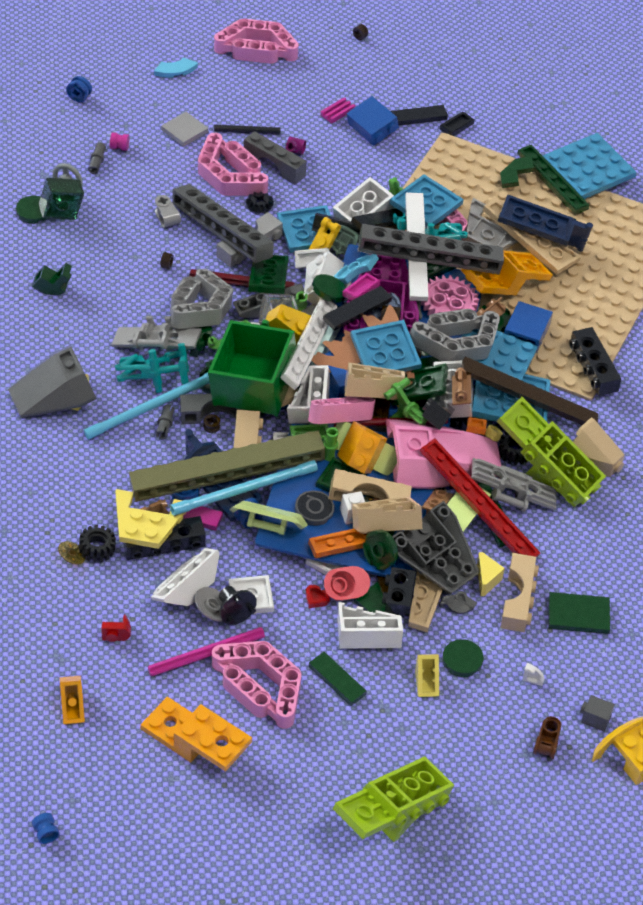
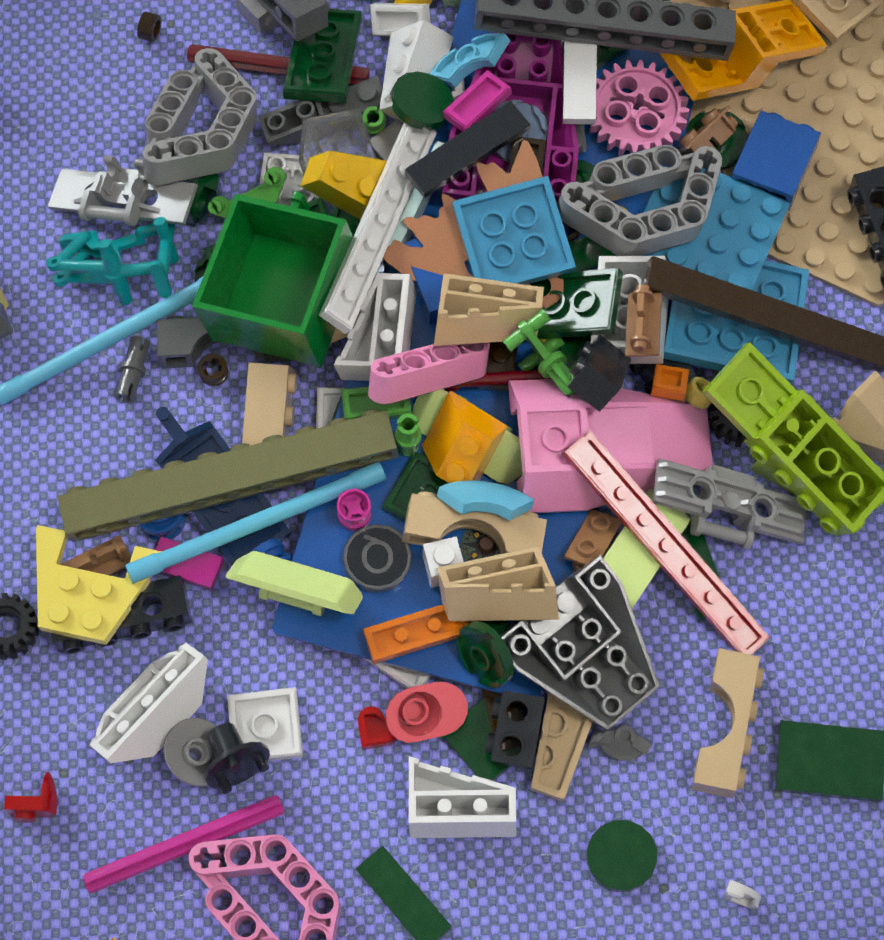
camera: 10 degrees right, 20 degrees up
(300, 481) = (353, 503): none -> dark pink wheel
(378, 473) = (485, 497): none -> medium azure tile
(427, 675) = (557, 901): light yellow slope -> none
(490, 573) = (676, 684): light yellow slope -> none

